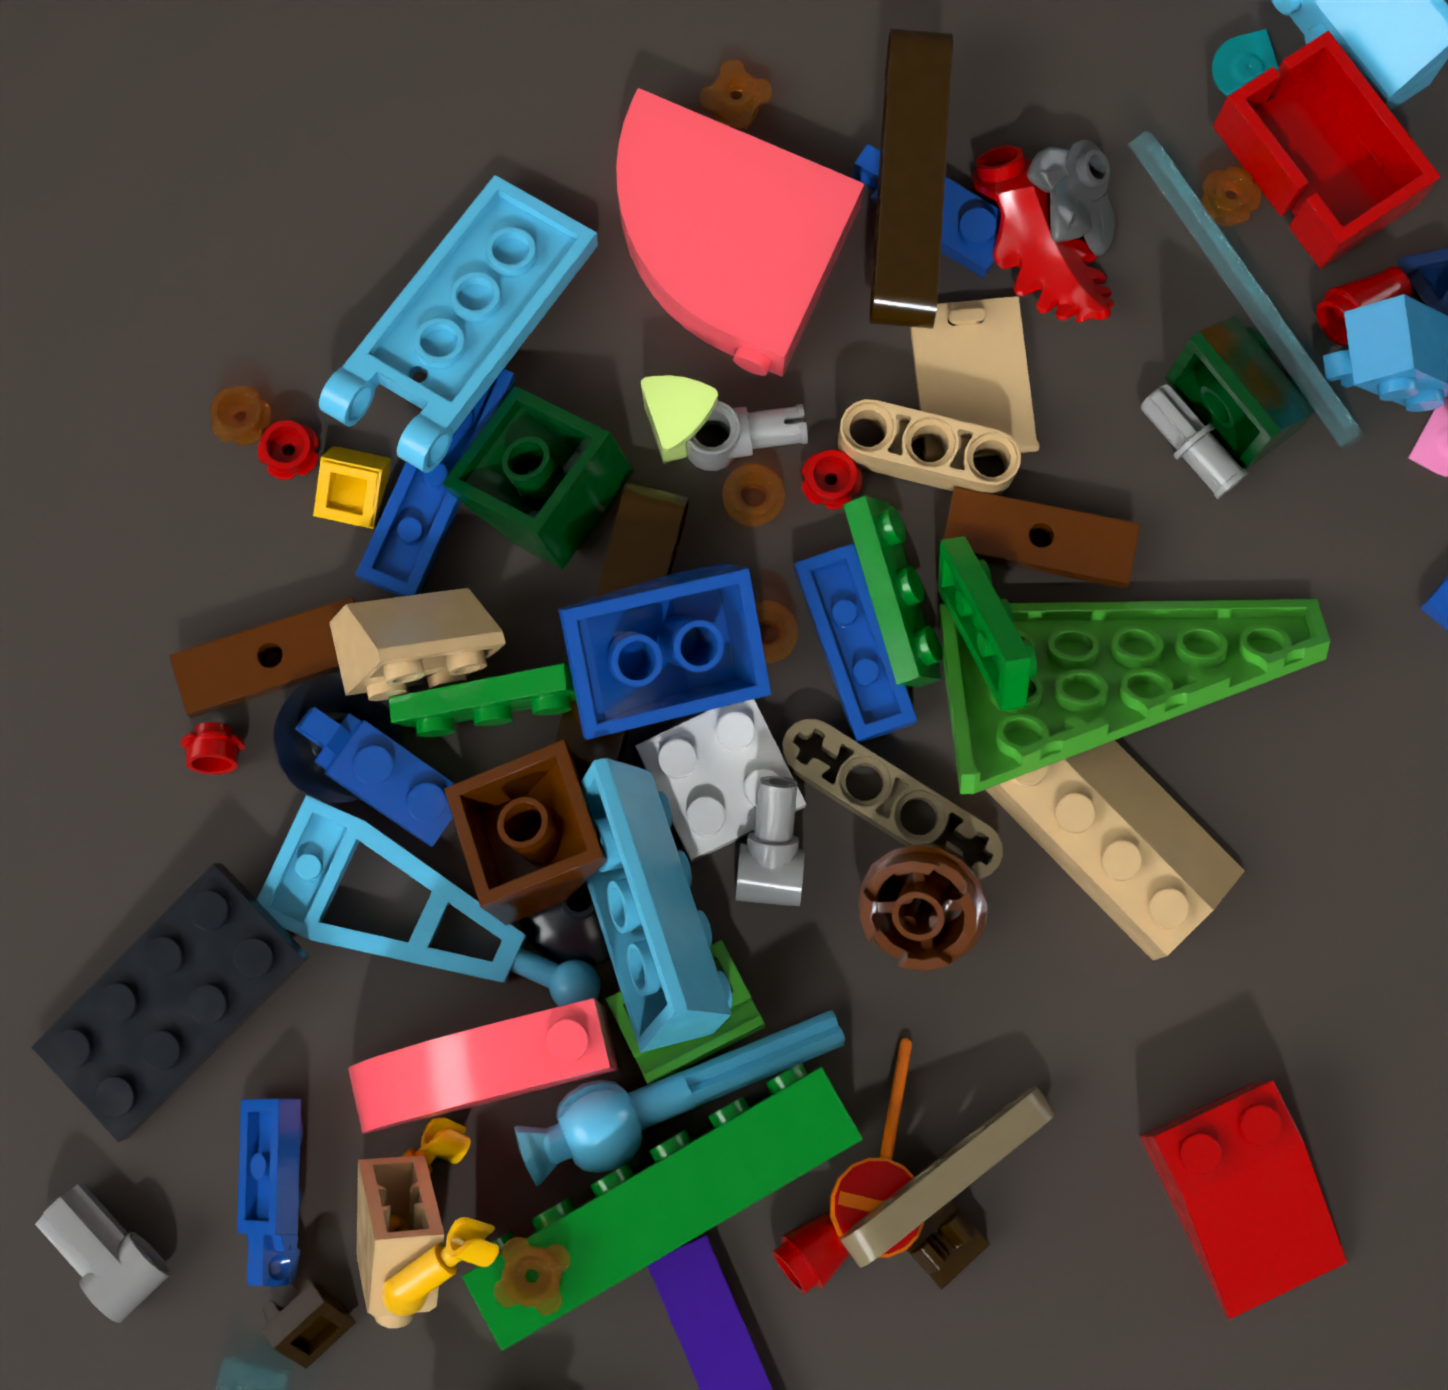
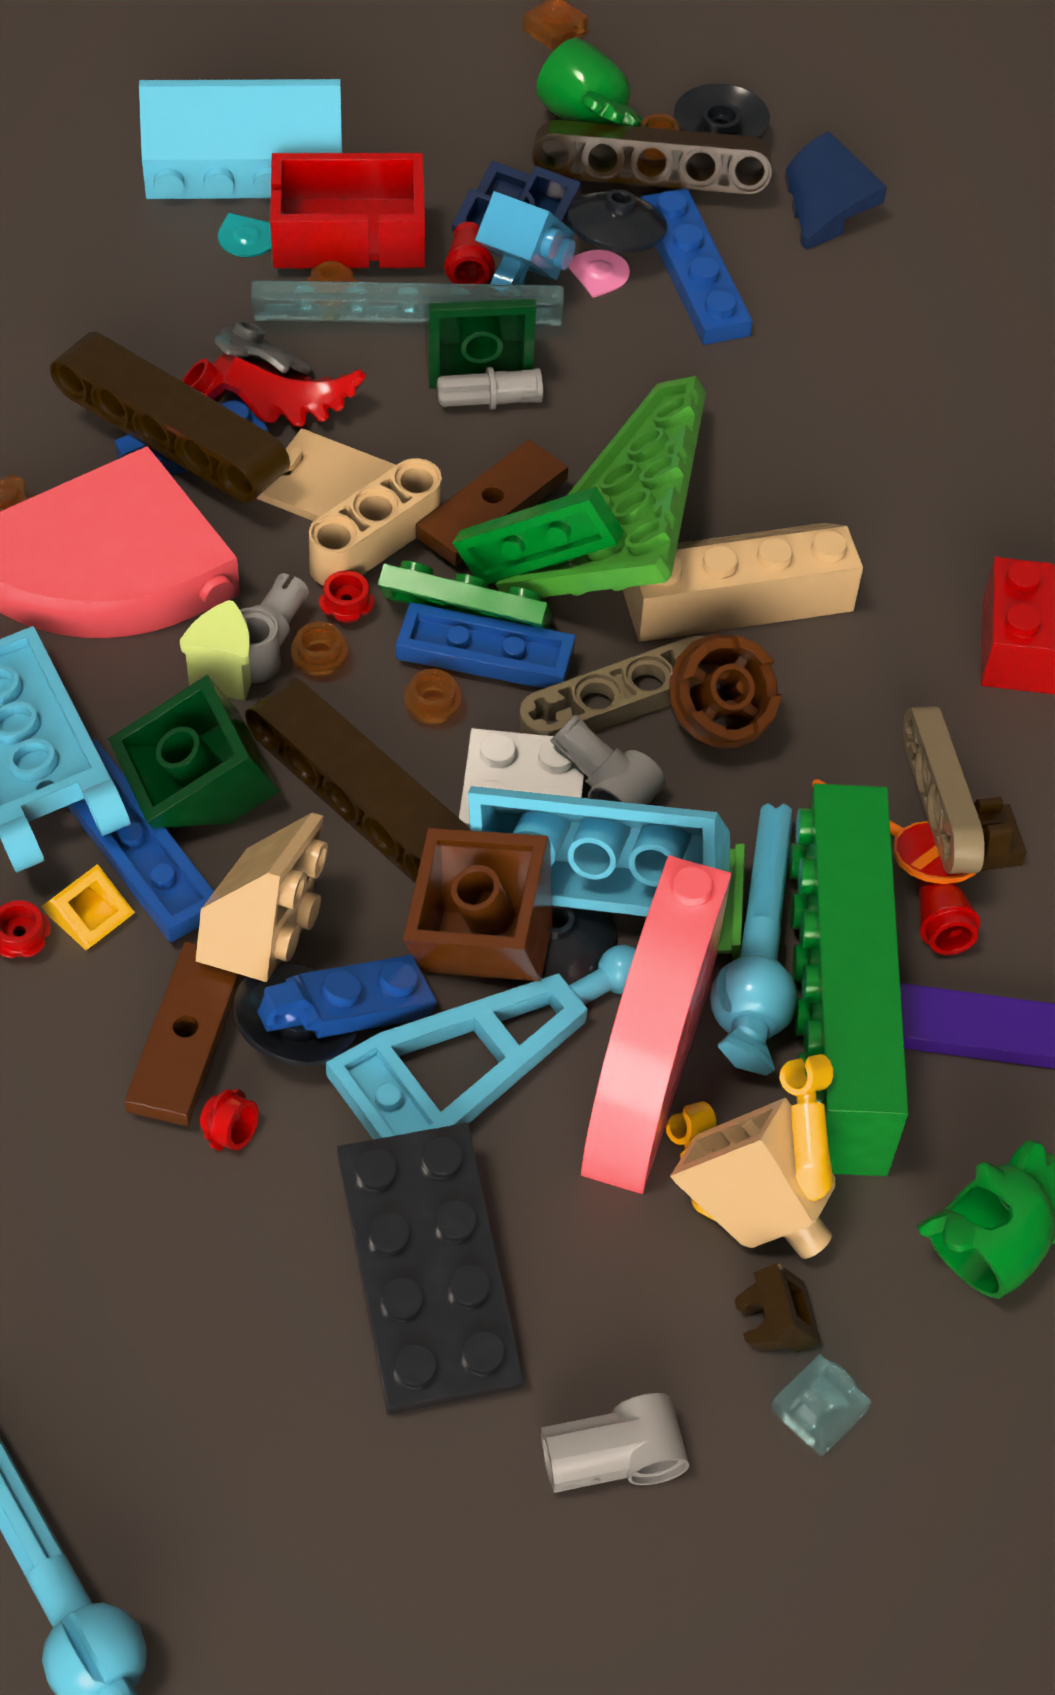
camera: 60 degrees left, 25 degrees down
(270, 1188) = (642, 1274): blue hinge -> none
(485, 700) = (351, 877): green plate -> none
(515, 1288) = (866, 1033): clear orange plate -> none
(665, 649) = (411, 723): blue slope -> none

